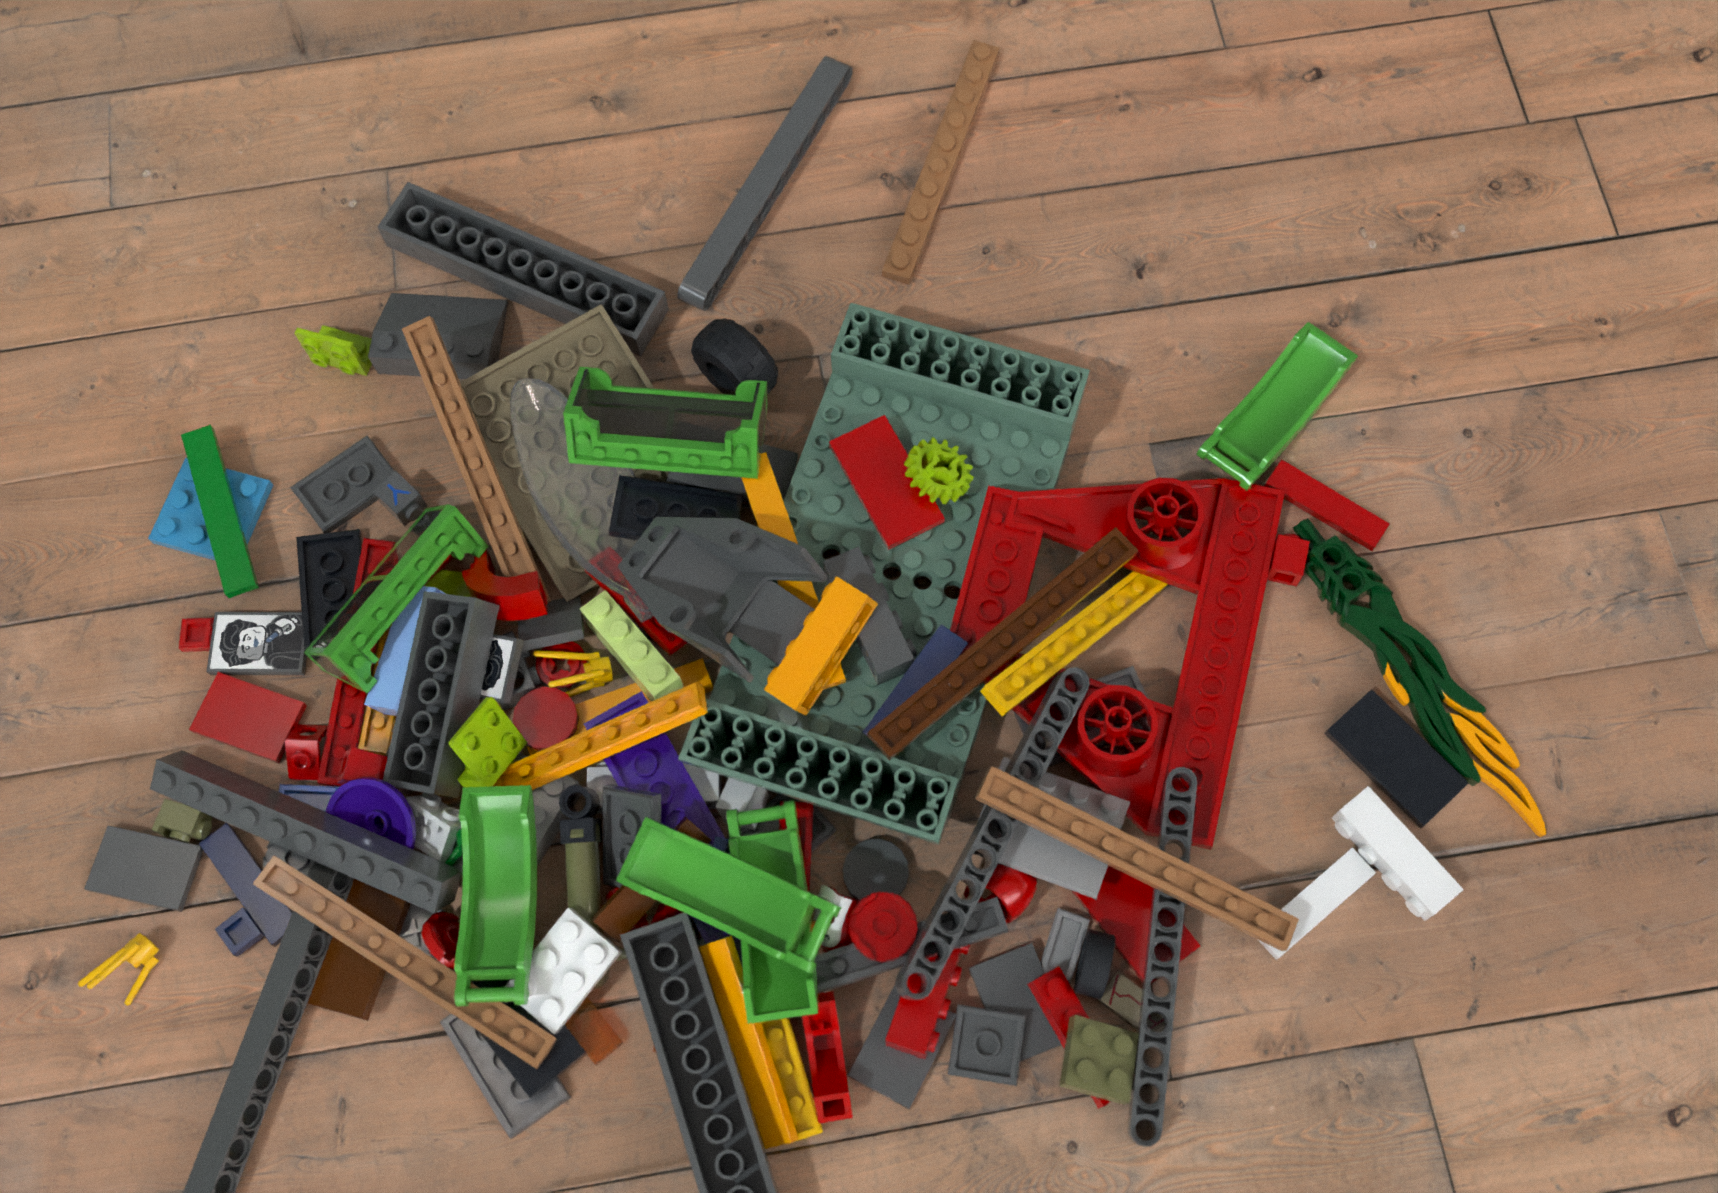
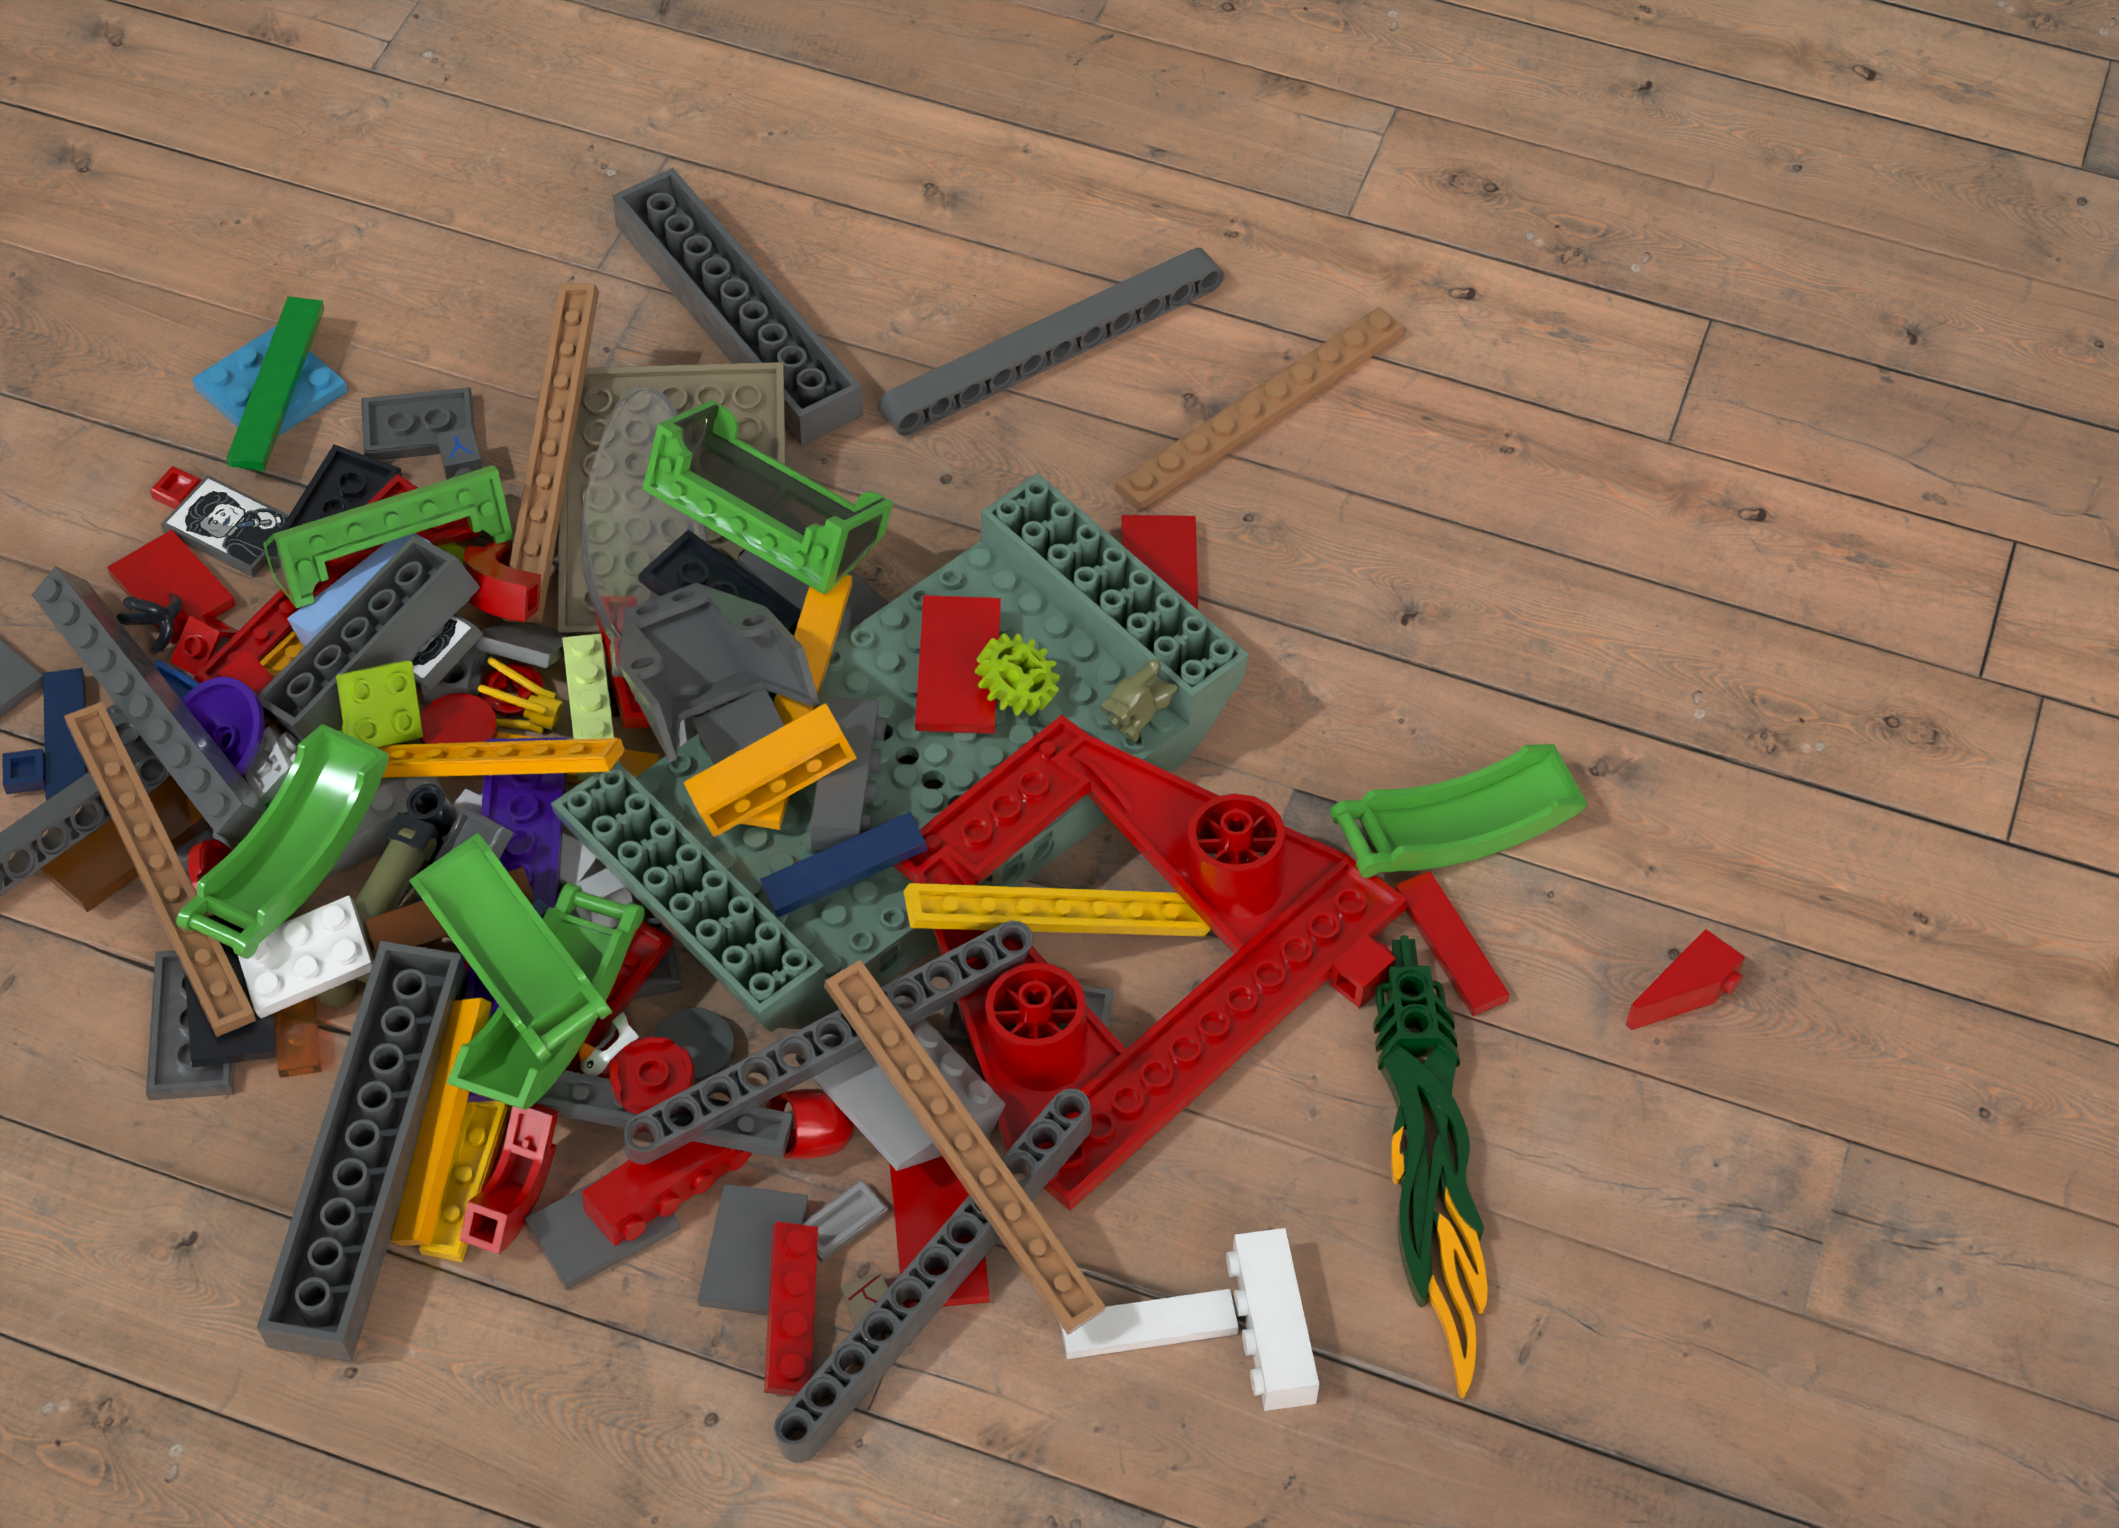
camera: 25 degrees right, 15 degrees down
(182, 822) = (40, 643): olive brick -> none
(258, 752) = (151, 613): none -> black piece
(336, 349) = (497, 294): lime bracket -> none
(468, 327) = (624, 327): dark grey slope -> none
(732, 355) = (887, 466): black tyre -> none
(949, 306) = (1167, 548): none -> red tile
(987, 1045) = (689, 1266): dark grey tile -> none
(1001, 644) = (963, 860): reddish brown plate -> none
(1036, 446) = (1137, 699): none -> olive animal
(1094, 964) = (856, 1242): black tyre -> none
(1099, 1059) = (791, 1332): olive plate -> none
(1396, 758) = (1347, 1231): black tile -> none
(1499, 441) = (1689, 982): none -> red slope

